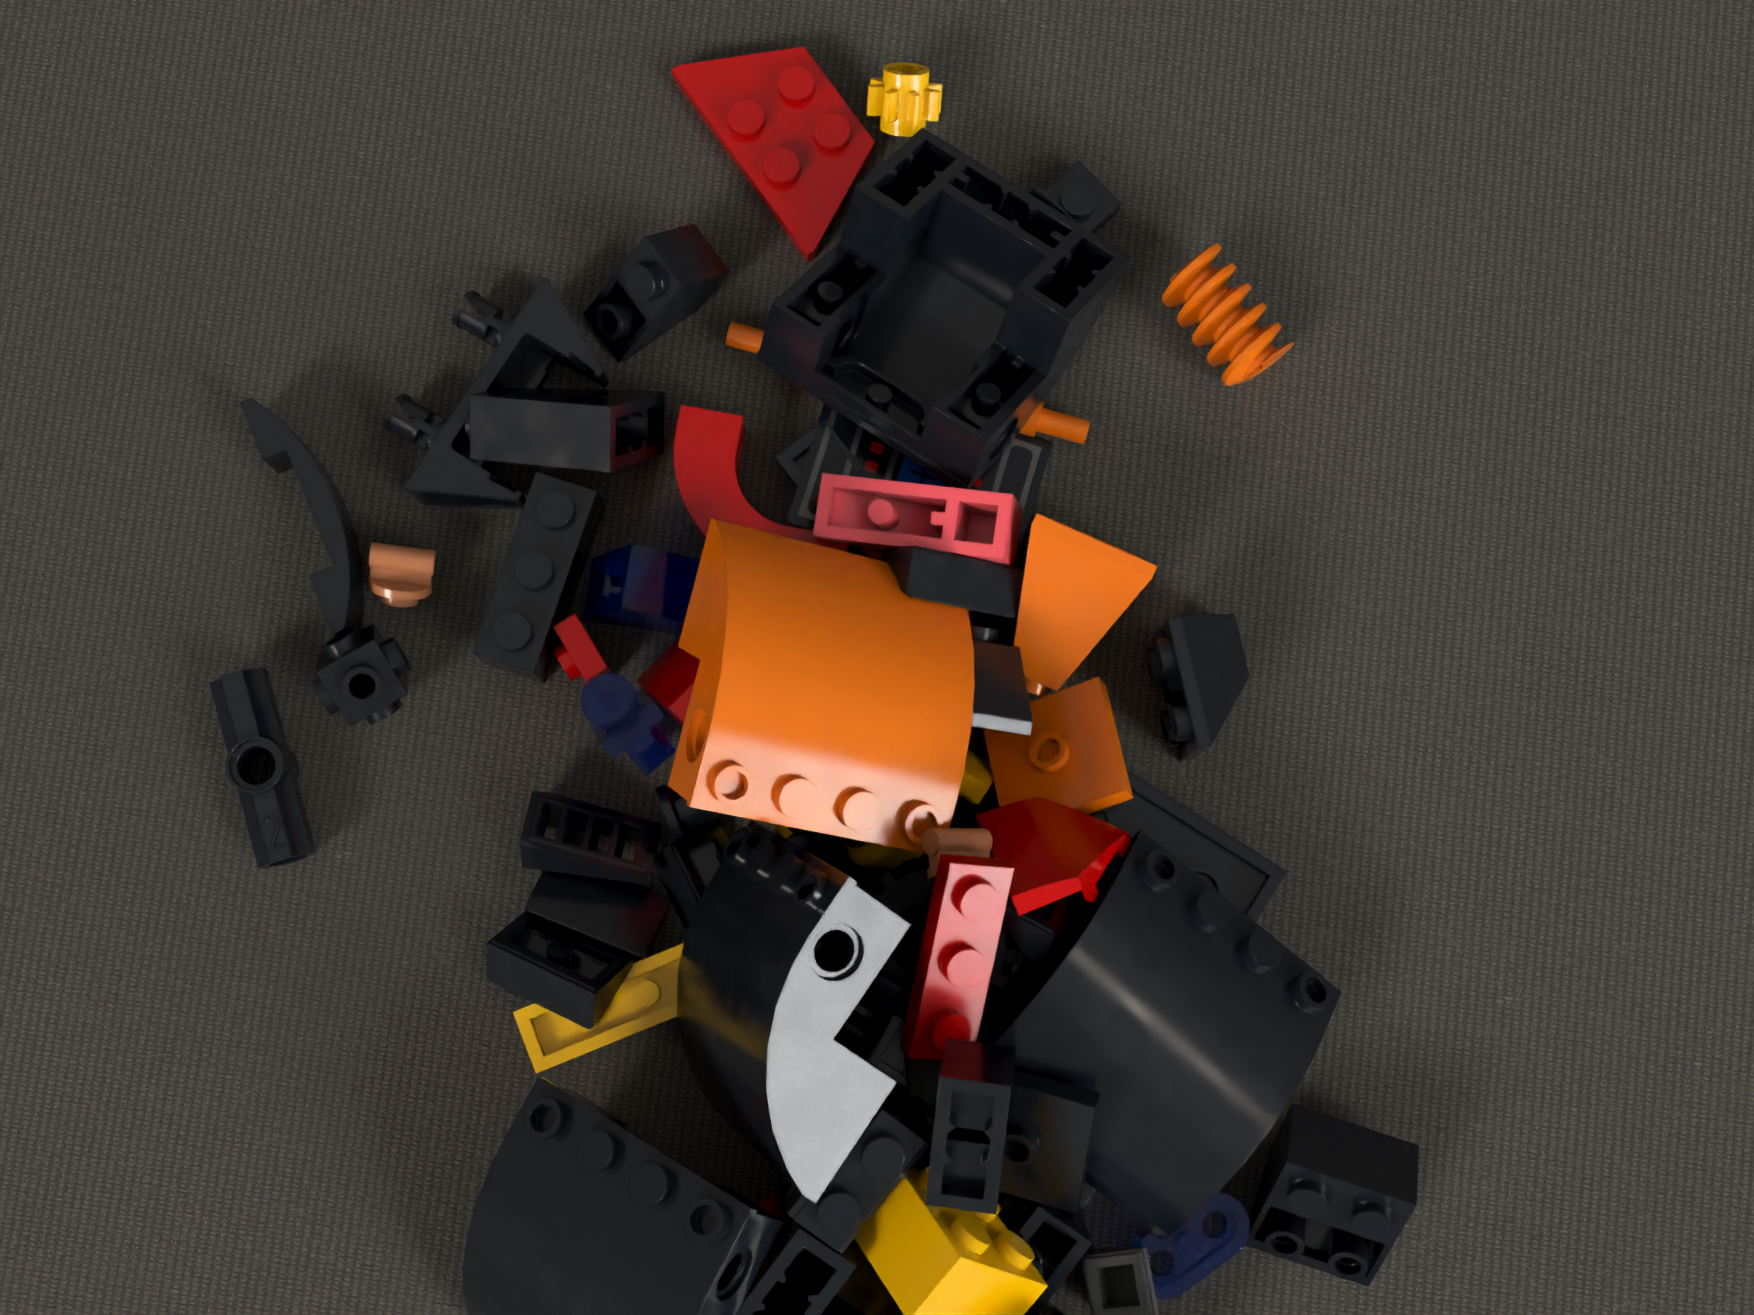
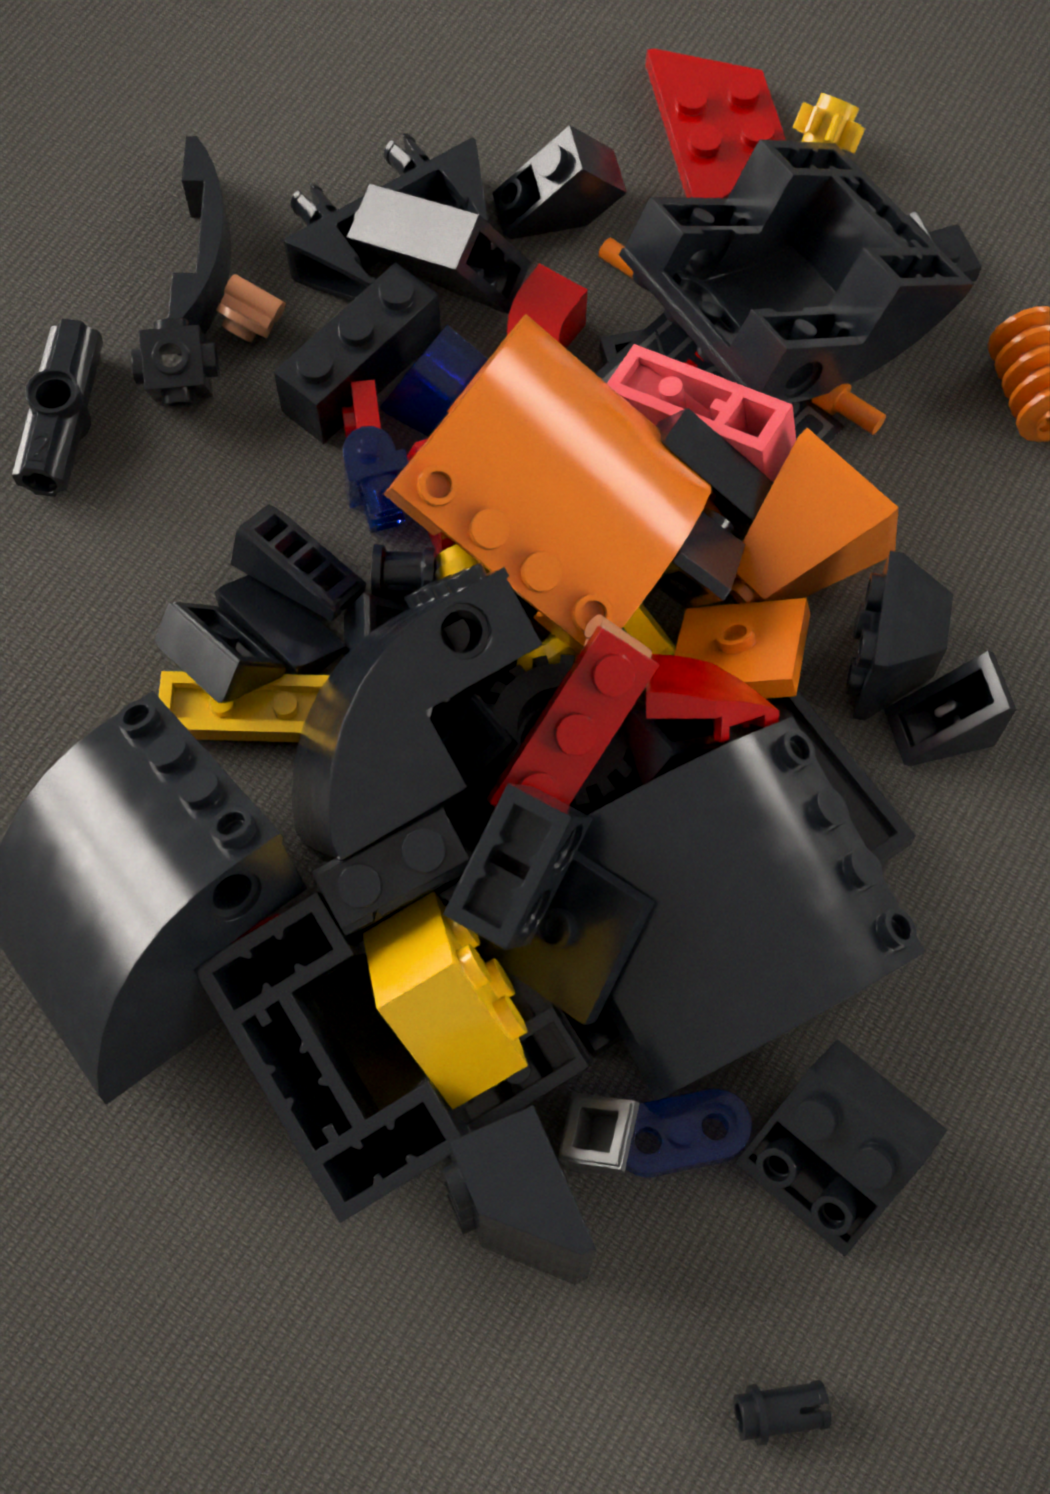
camera: 25 degrees right, 15 degrees down
(1273, 731) = (953, 713): none -> black slope

